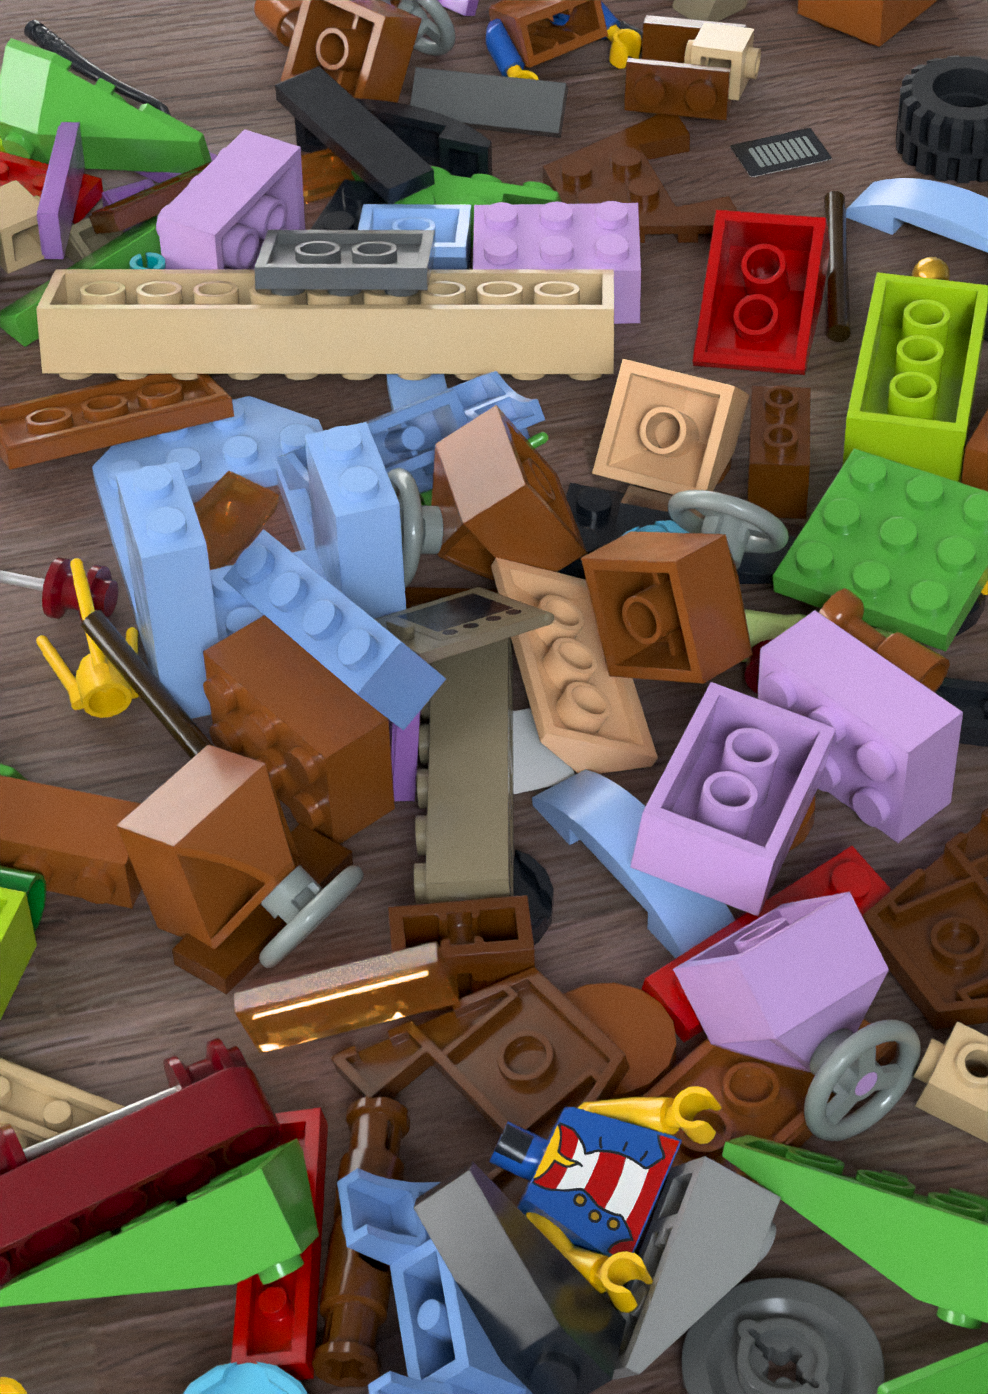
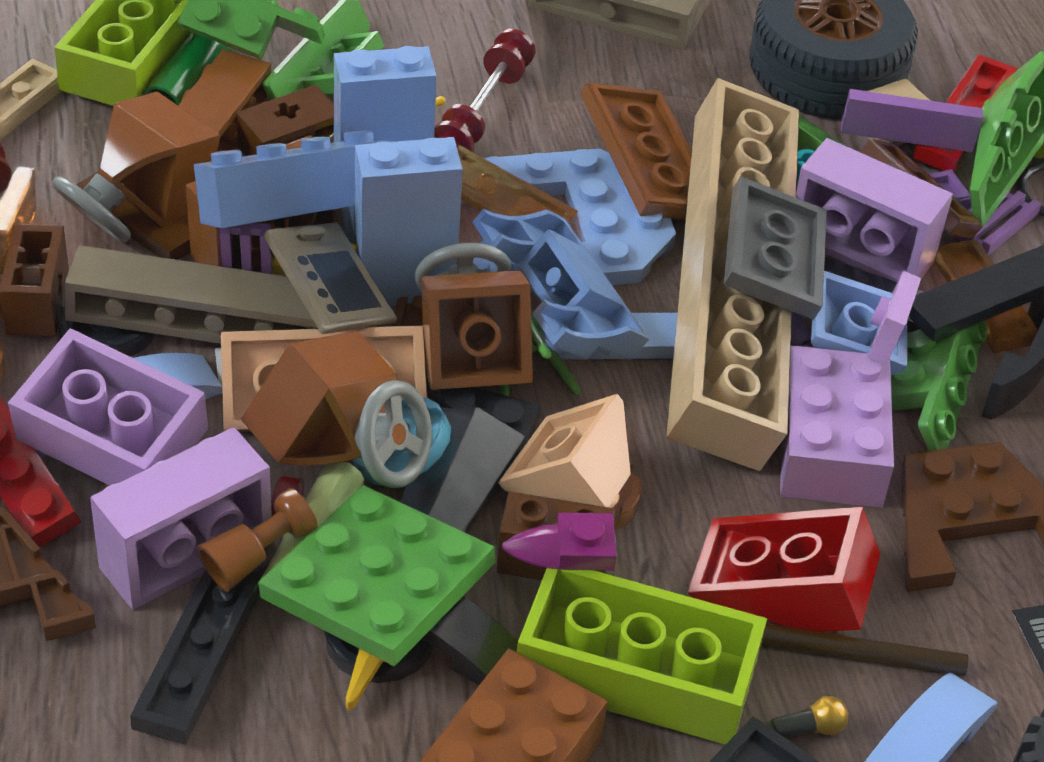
camera: 90 degrees right, 0 degrees up
(84, 747) = (285, 120): none -> reddish brown brick
(440, 182) = (892, 317): none -> lavender plate
(829, 398) = (573, 543): none -> magenta plate

